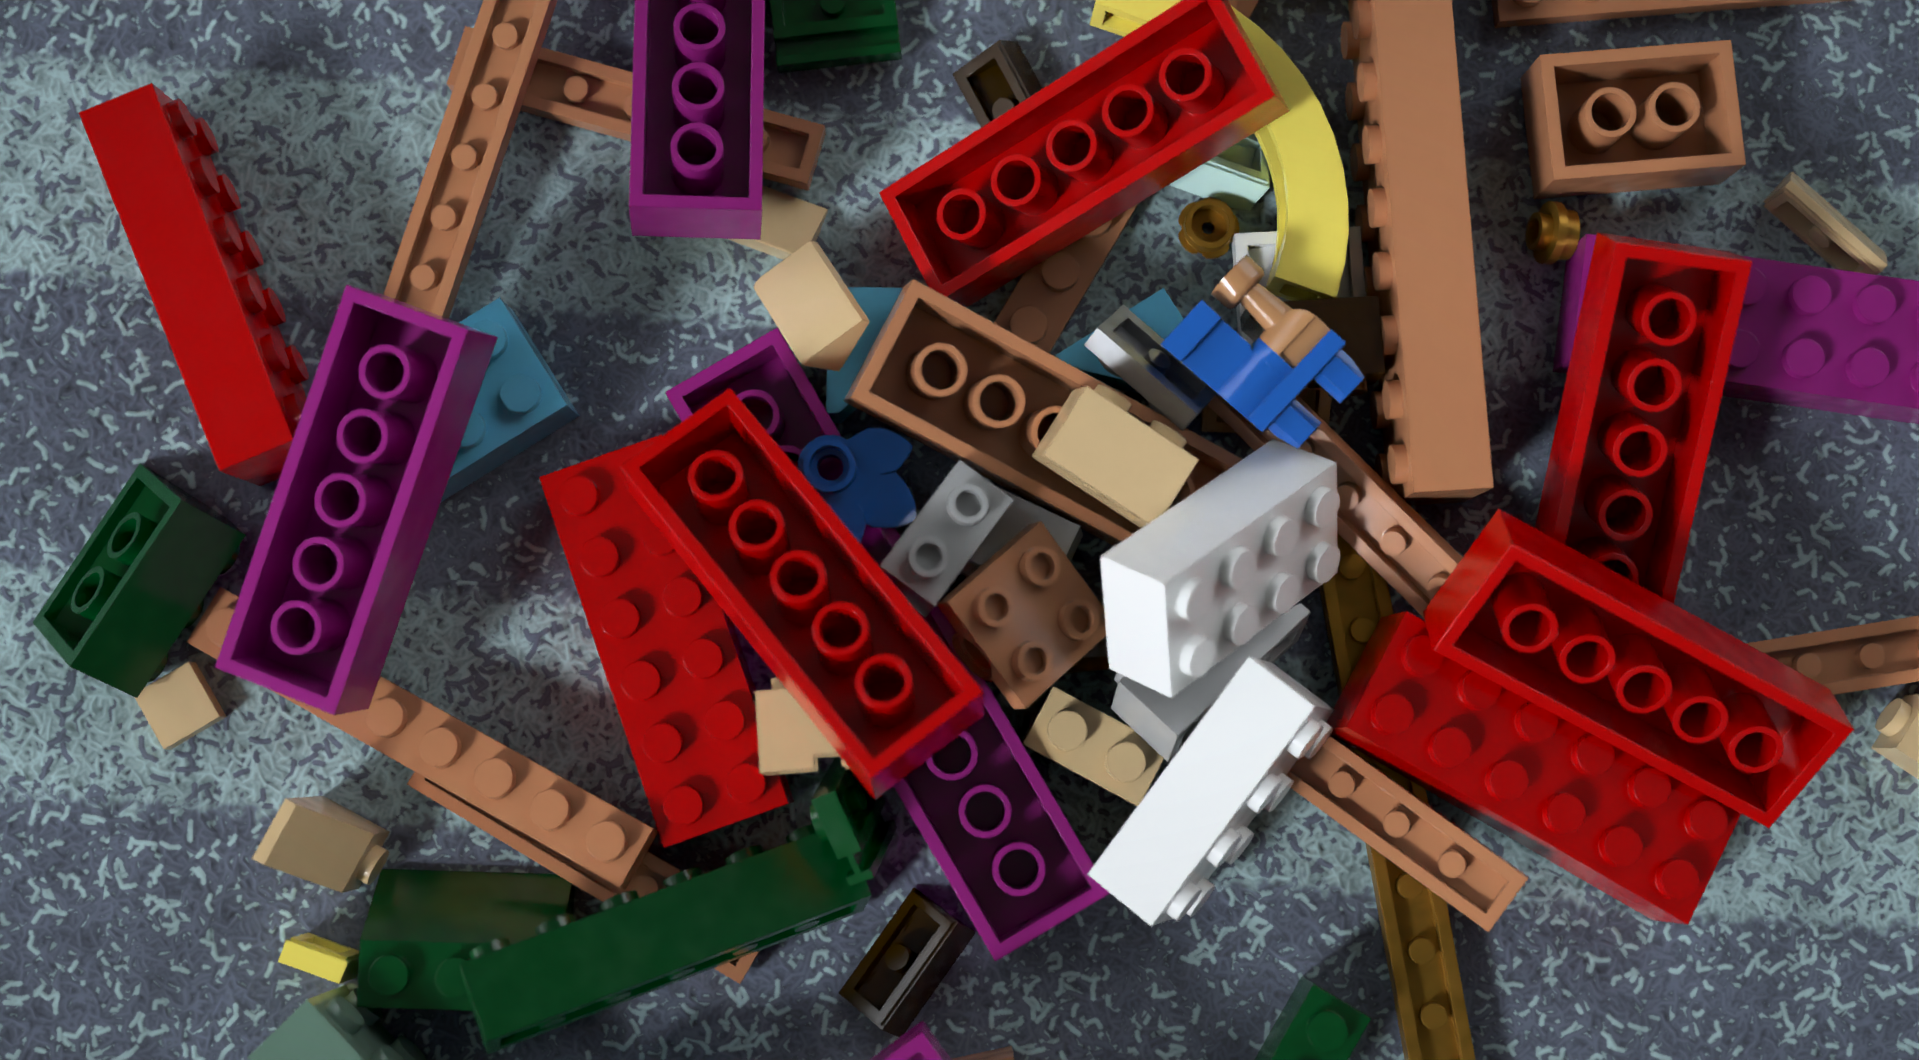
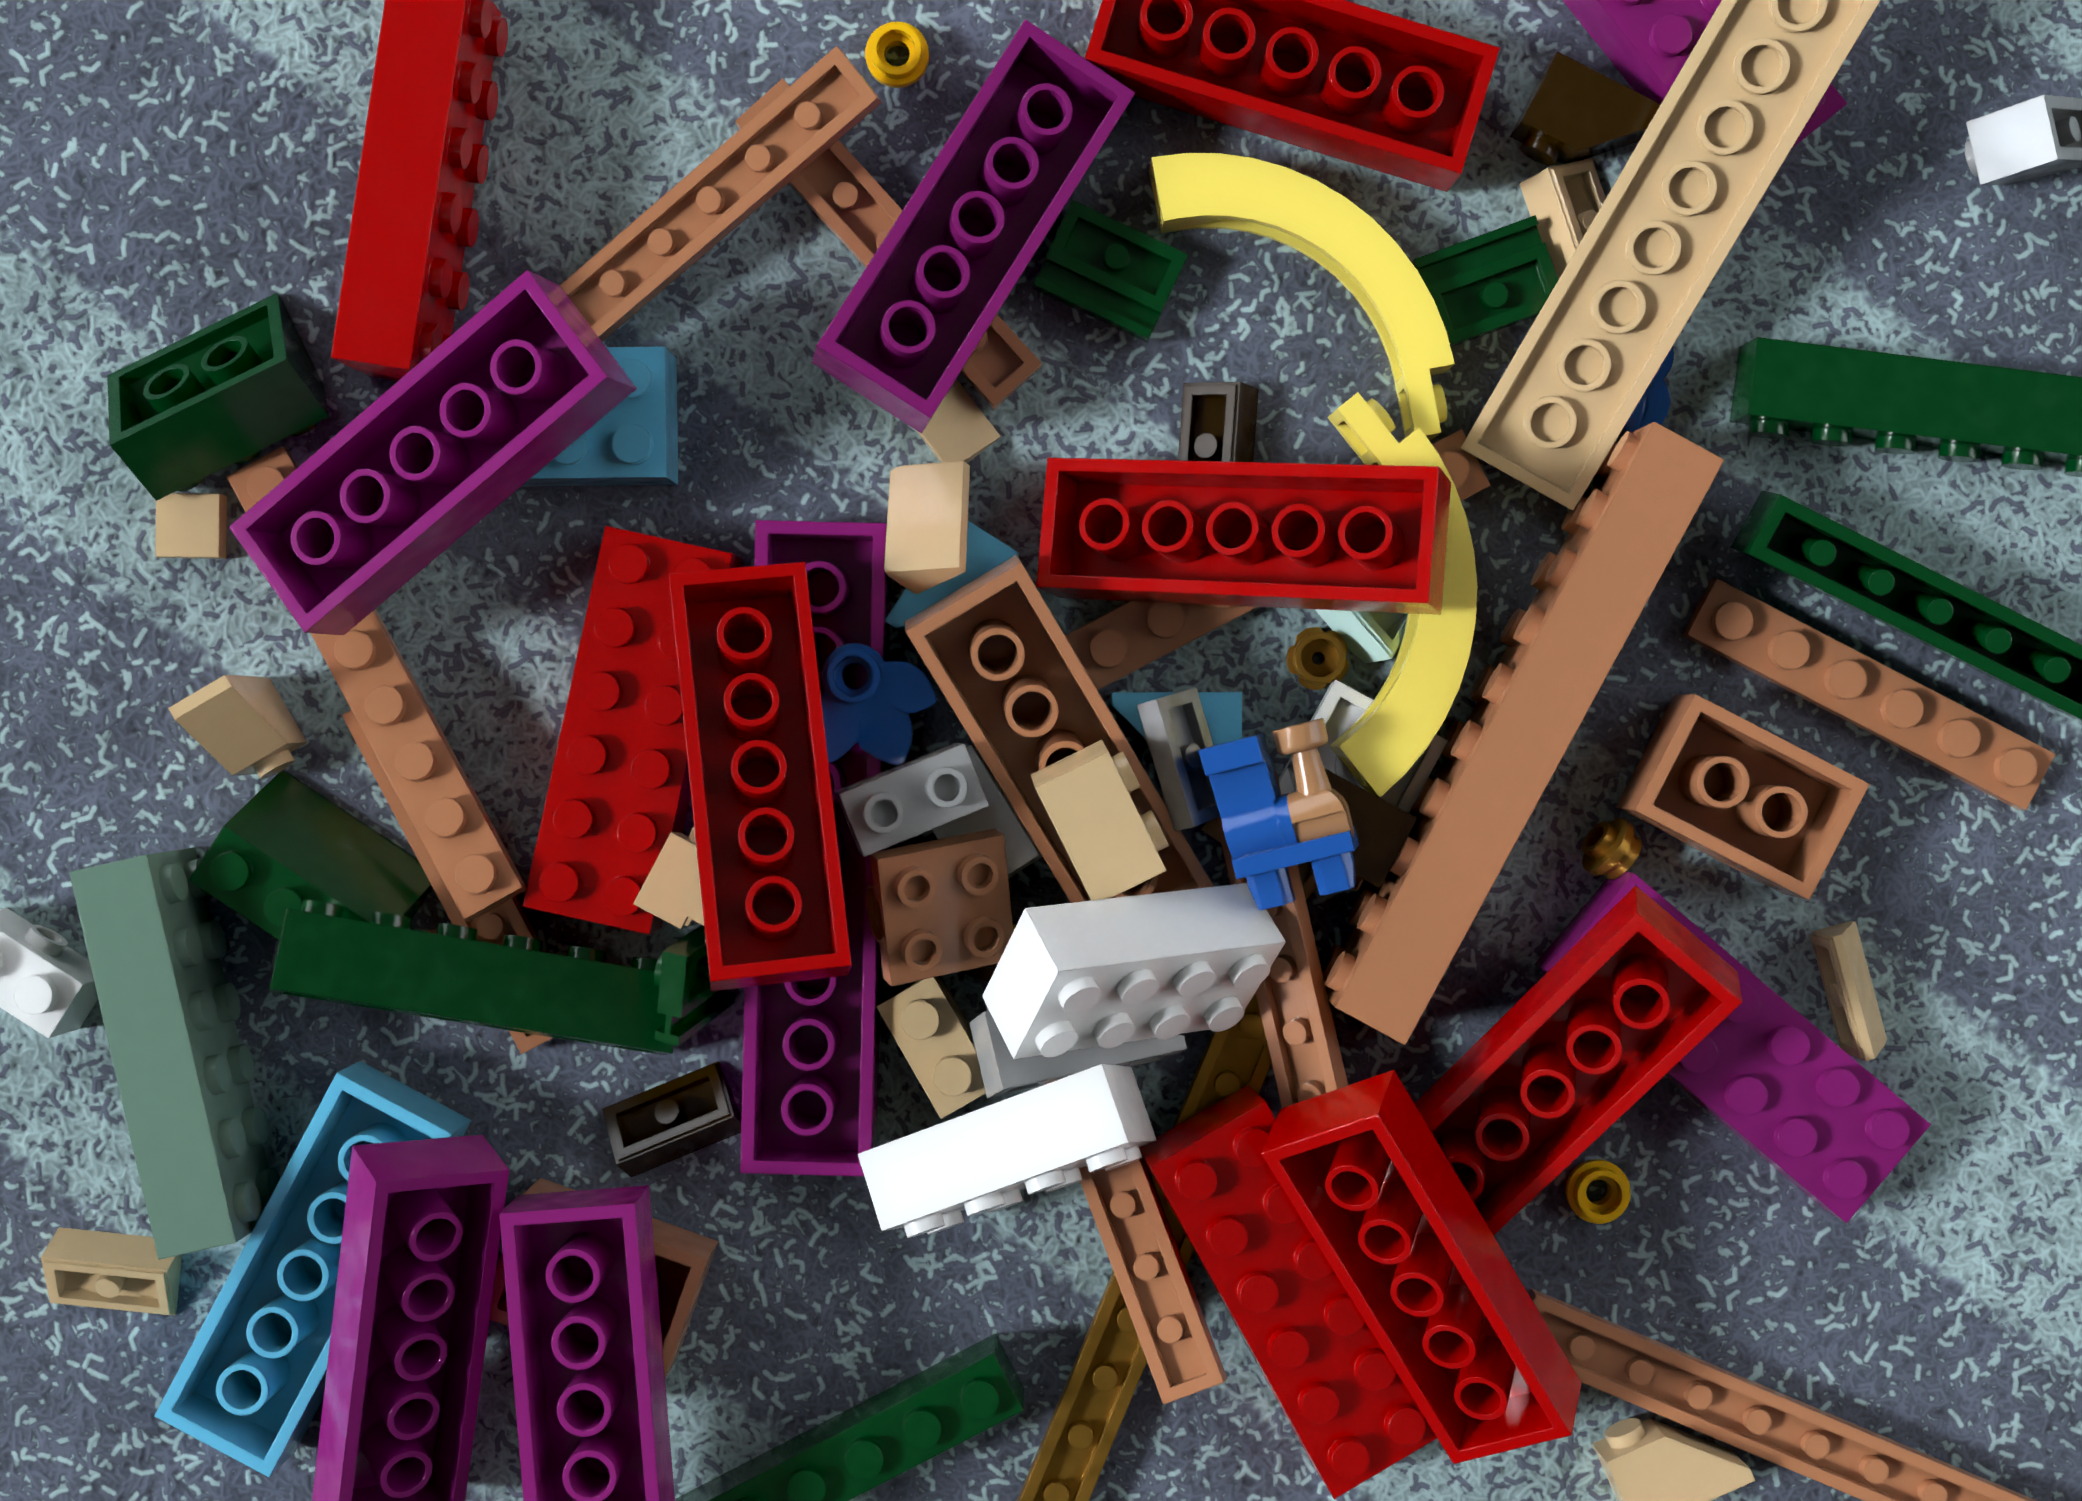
camera: 30 degrees right, 5 degrees up
(321, 957) = (186, 815): light yellow tile -> none
(1750, 521) = (1611, 1205): none -> yellow plate

